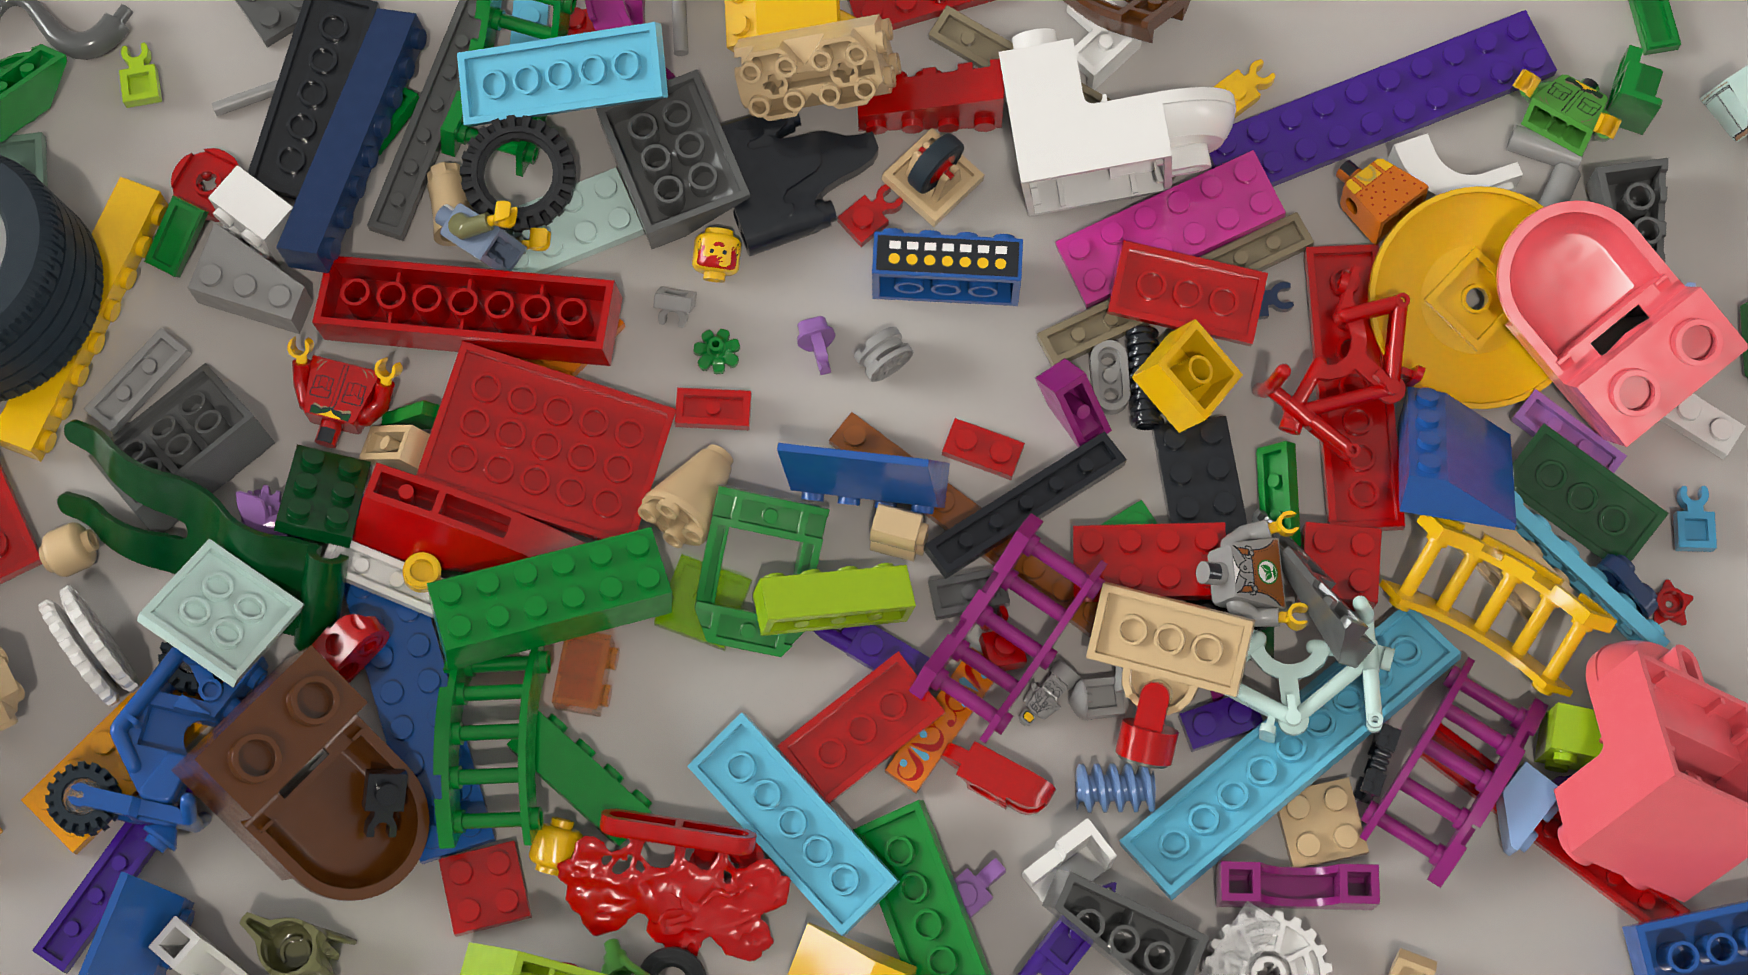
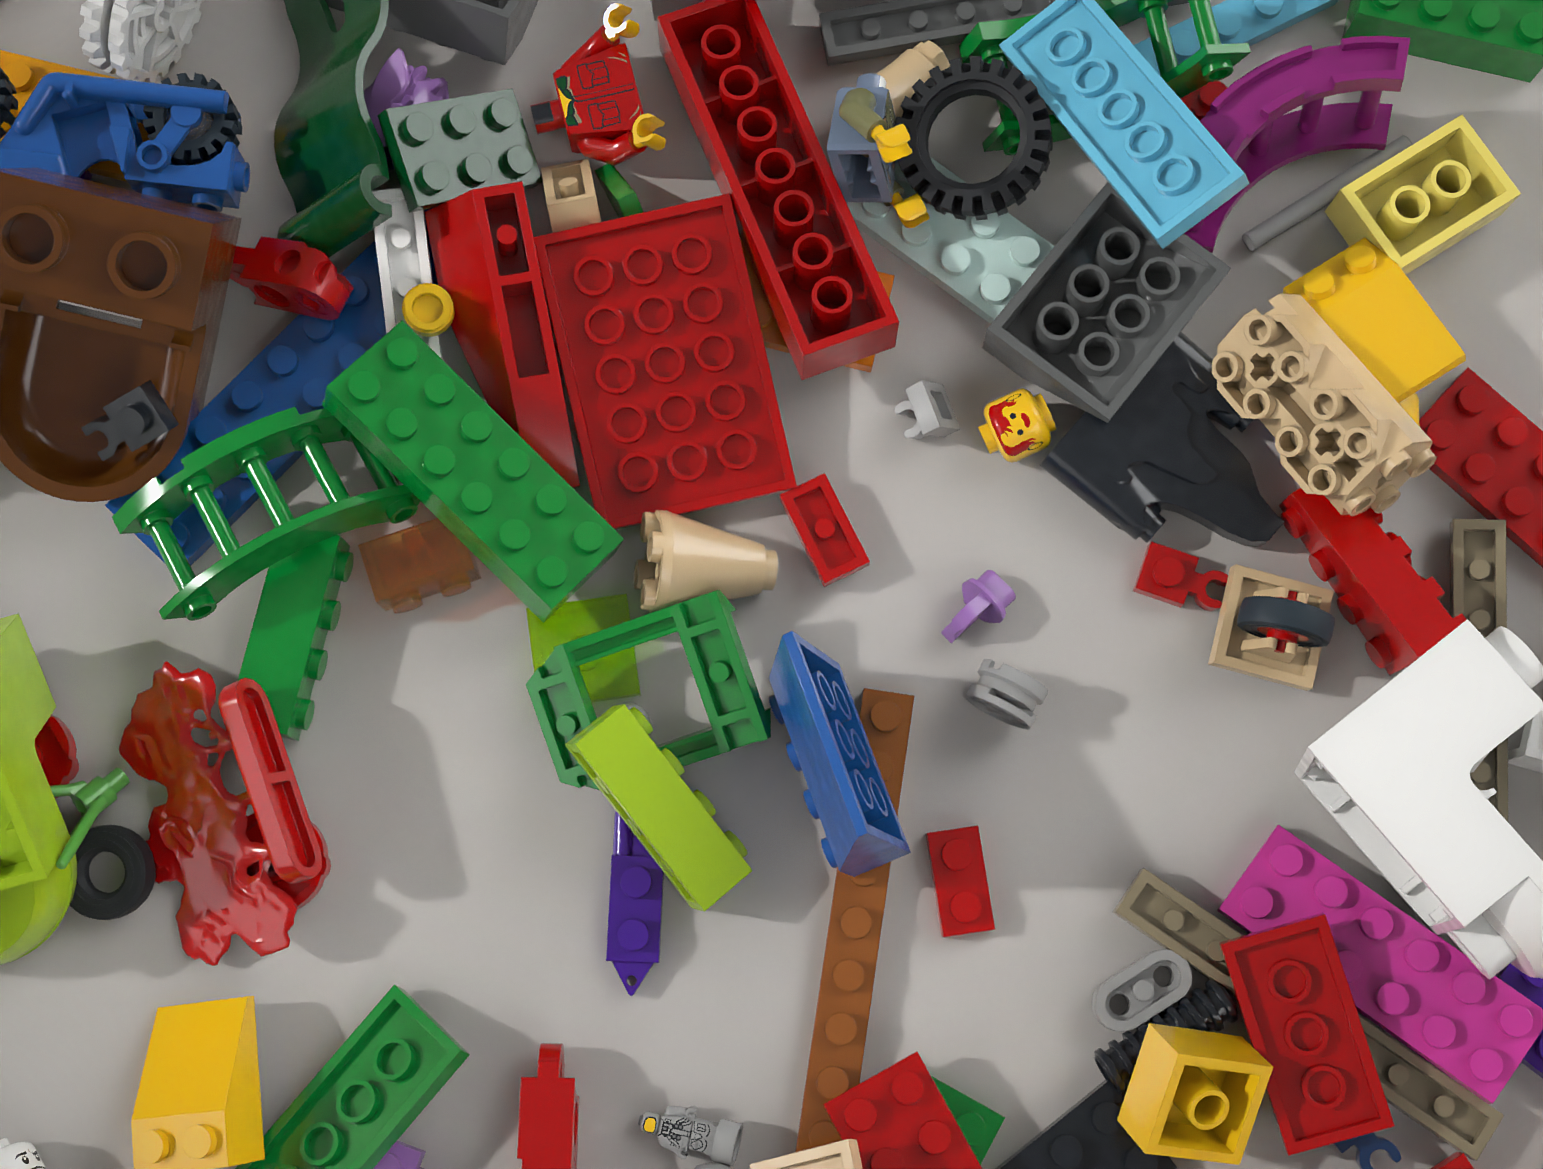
camera: 60 degrees right, 5 degrees up
(220, 612) = (242, 112): light aqua plate -> none
(485, 888) = (112, 596): red plate -> none
(554, 844) = (198, 644): yellow head -> none
(717, 351) = (899, 502): green plant -> none
(793, 824) = (361, 913): medium azure plate -> none
(861, 729) = (522, 929): red plate -> none
(898, 532) = (786, 838): tan brick -> none
(921, 755) = (592, 1021): orange tile -> none
(947, 267) = (1160, 709): brick -> none
(955, 593) = (765, 965): dark grey plate -> none
(981, 613) = (740, 999): magenta fence -> none
(1000, 650) = (719, 1043): red plate -> none
(1037, 495) = (911, 976): black plate -> none
(1073, 401) = (1081, 963): magenta slope -> none

